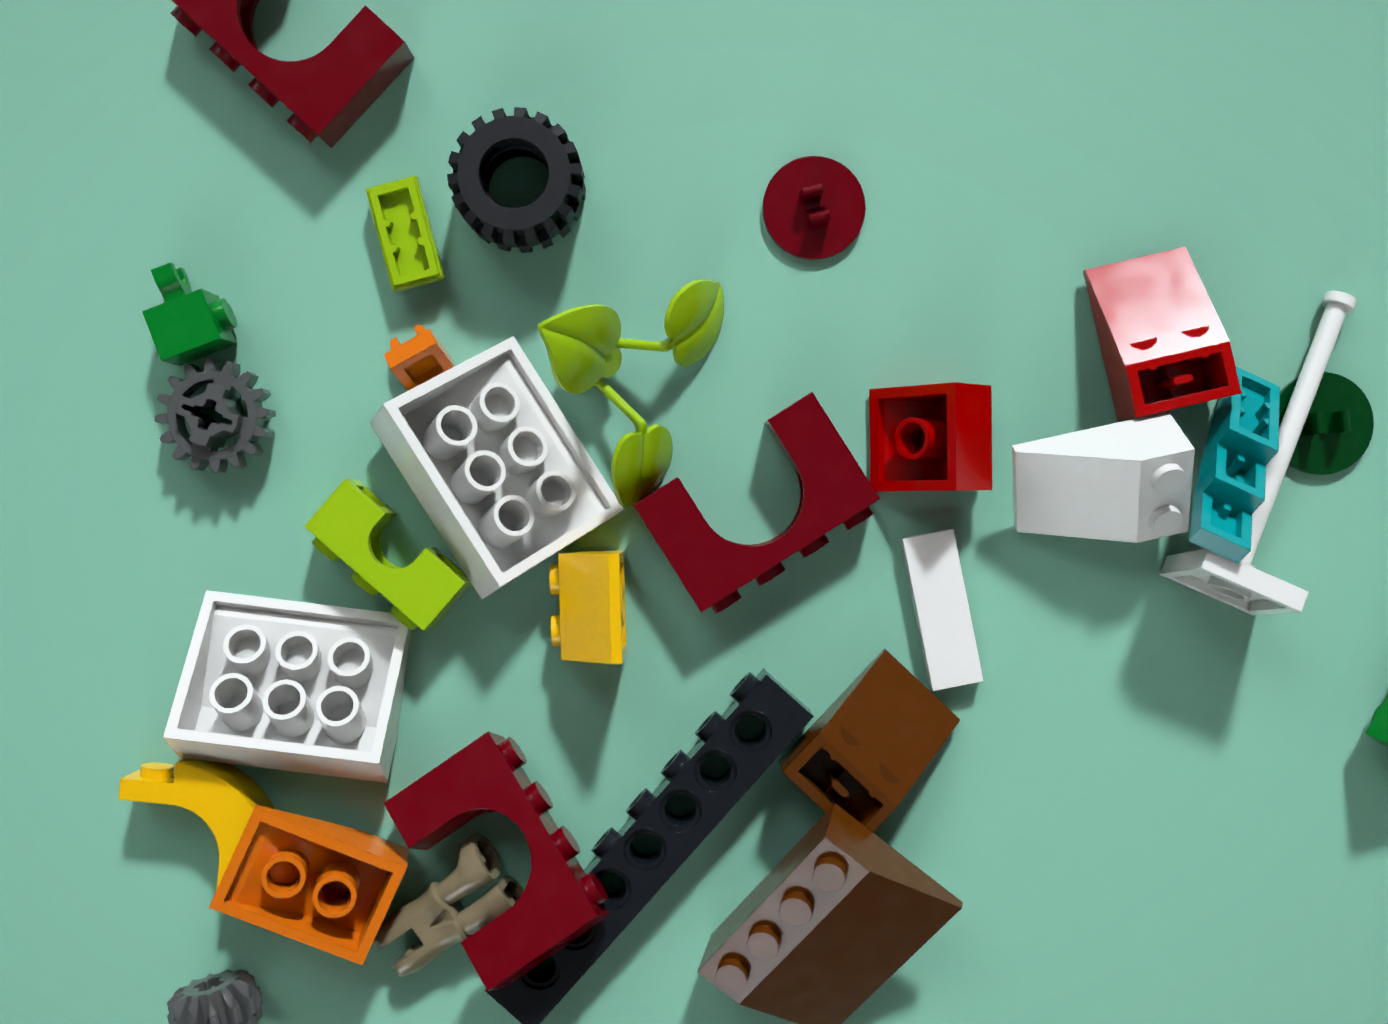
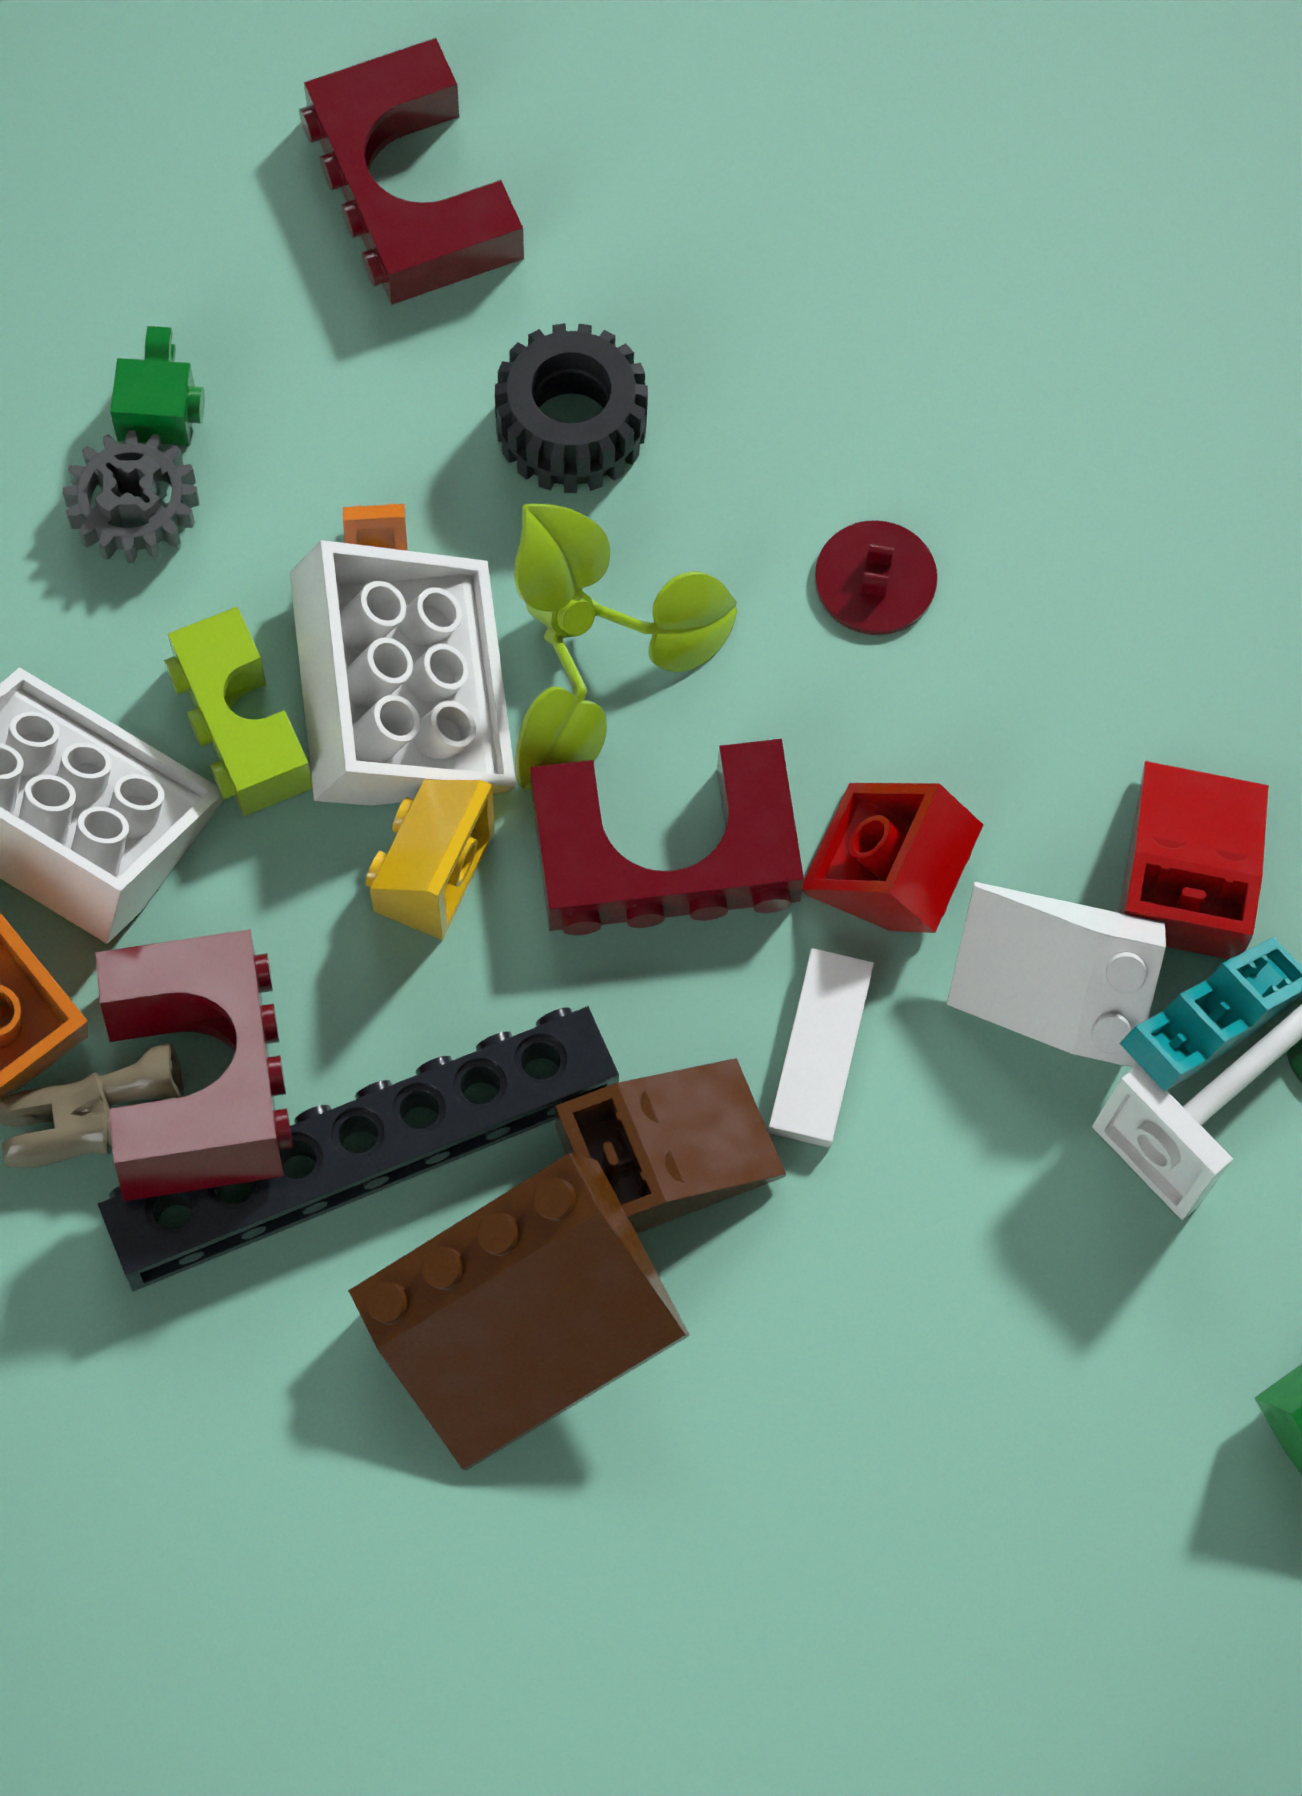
camera: 20 degrees right, 20 degrees down
(405, 233) = (426, 412): lime plate -> none

